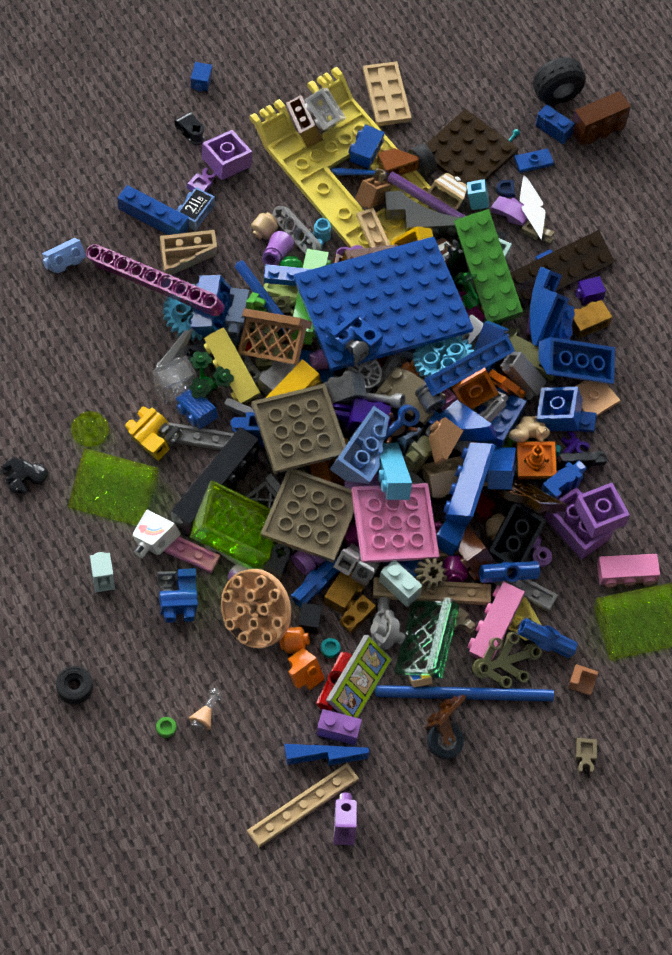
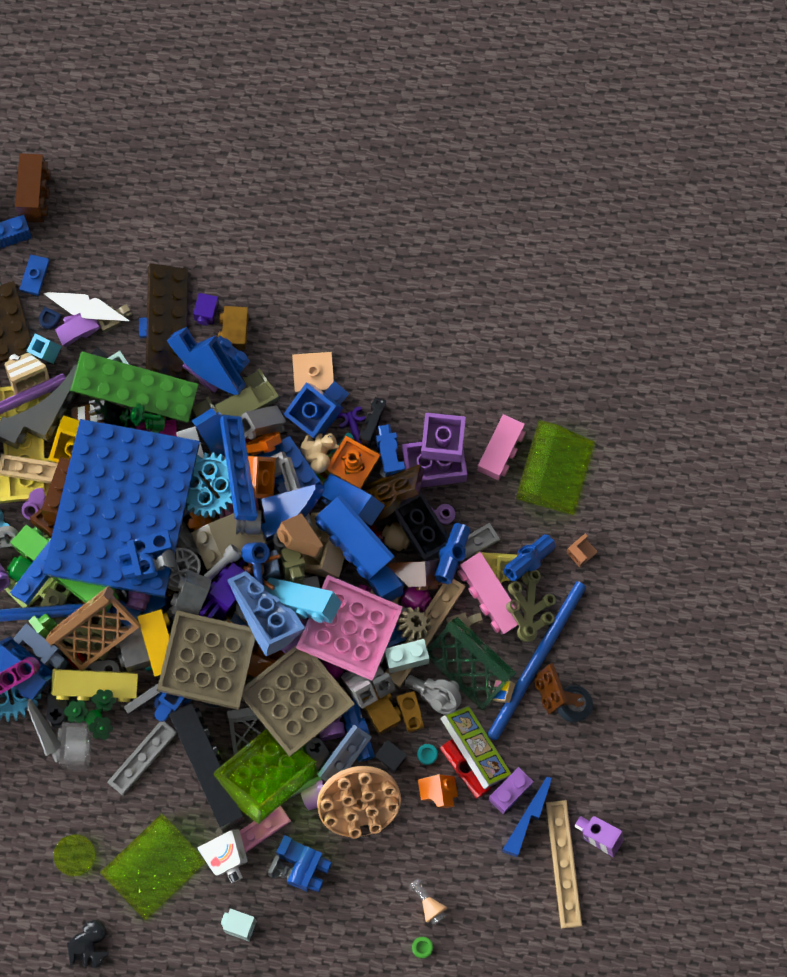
camera: 55 degrees left, 10 degrees up
(147, 429) = (111, 800): yellow hips -> none
(197, 410) = (121, 741): blue brick -> none
(294, 640) = (406, 782): orange head -> none
(295, 578) = (345, 753): none -> sand blue plate
(577, 360) = (277, 366): blue slope -> none
(586, 752) = (649, 587): dark tan plate -> none

